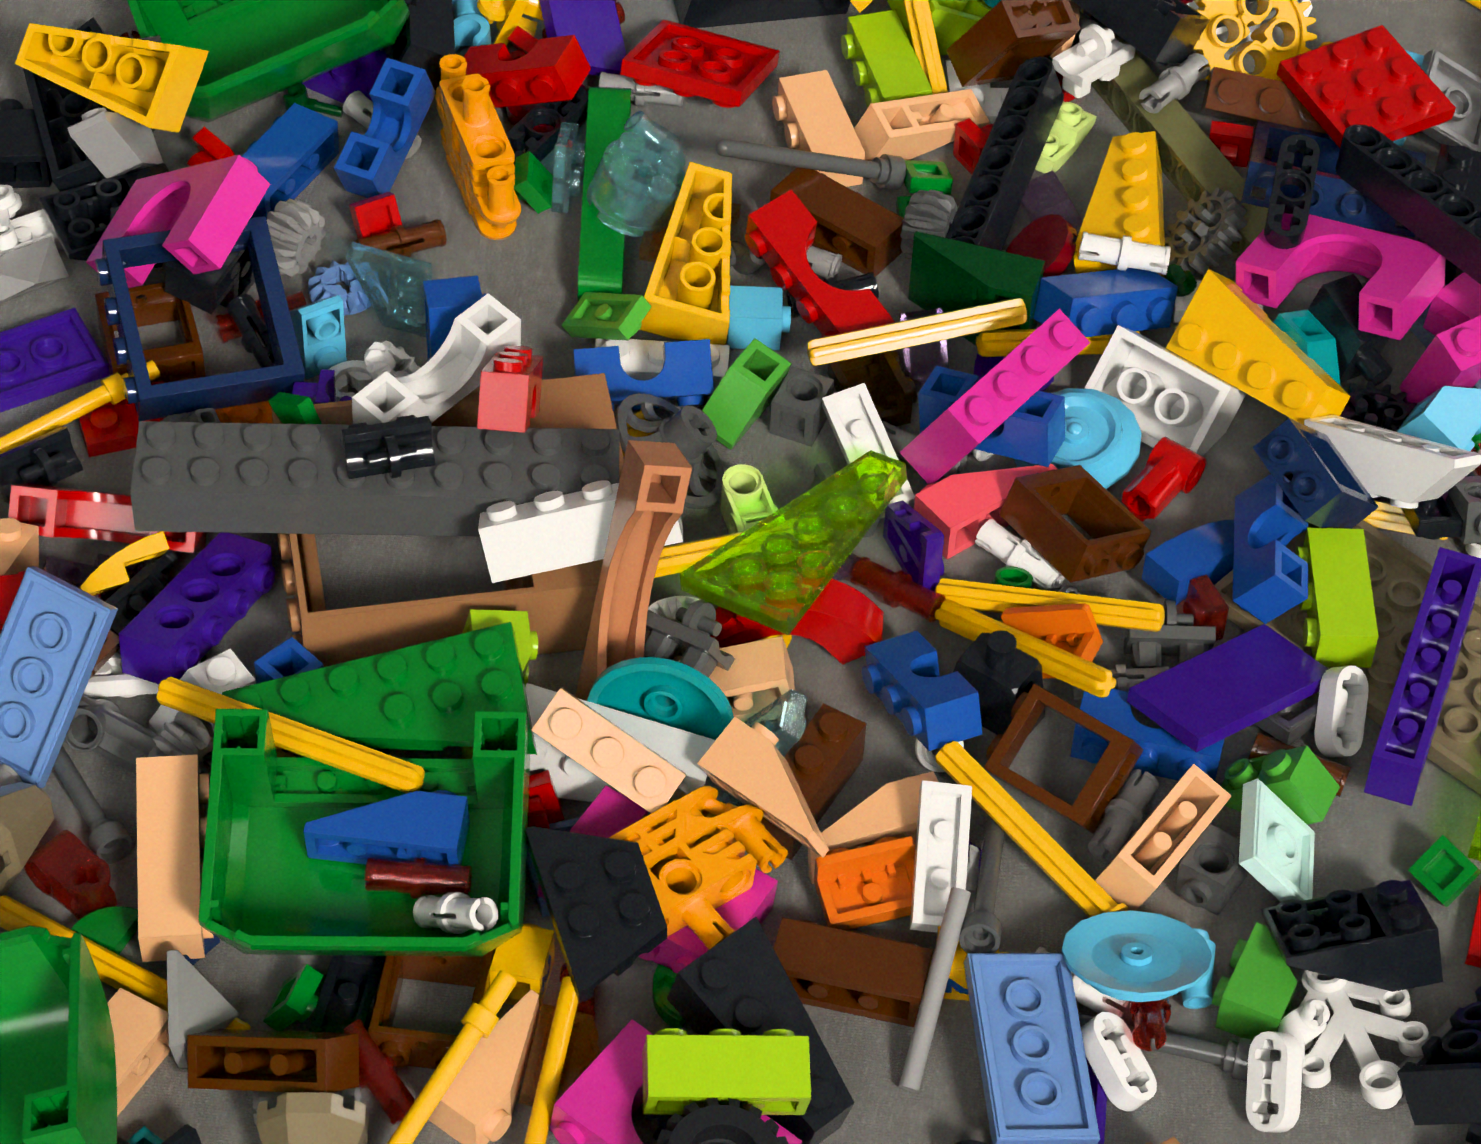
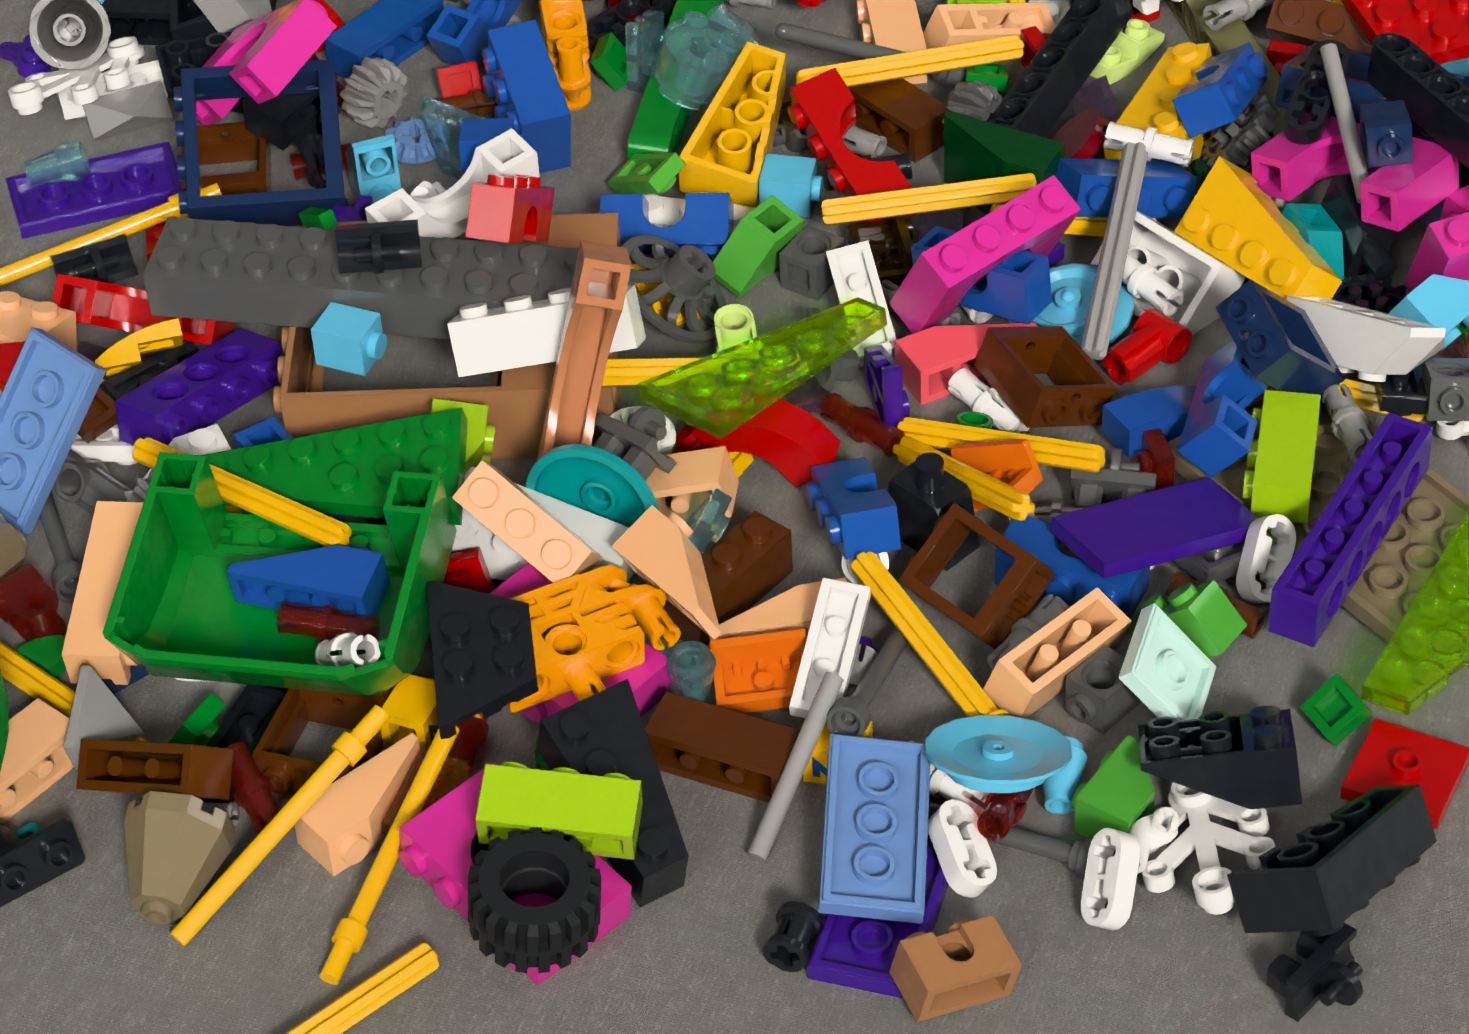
camera: 15 degrees right, 5 degrees down
(363, 546) = (348, 338): none -> medium azure brick
(464, 228) = (528, 91): none -> blue brick
(801, 890) = (692, 670): none -> clear light blue cone
(860, 170) = (922, 61): none -> yellow axle
(1119, 378) = (1114, 251): none -> light grey axle
(1147, 406) = (1144, 281): none -> white pin
(1187, 187) = (1222, 89): none -> blue arch
(1329, 223) = (1344, 116): none -> light grey bar
(1376, 237) = (1386, 133): none -> dark blue brick
(1391, 555) = (1348, 420): none -> light grey pin

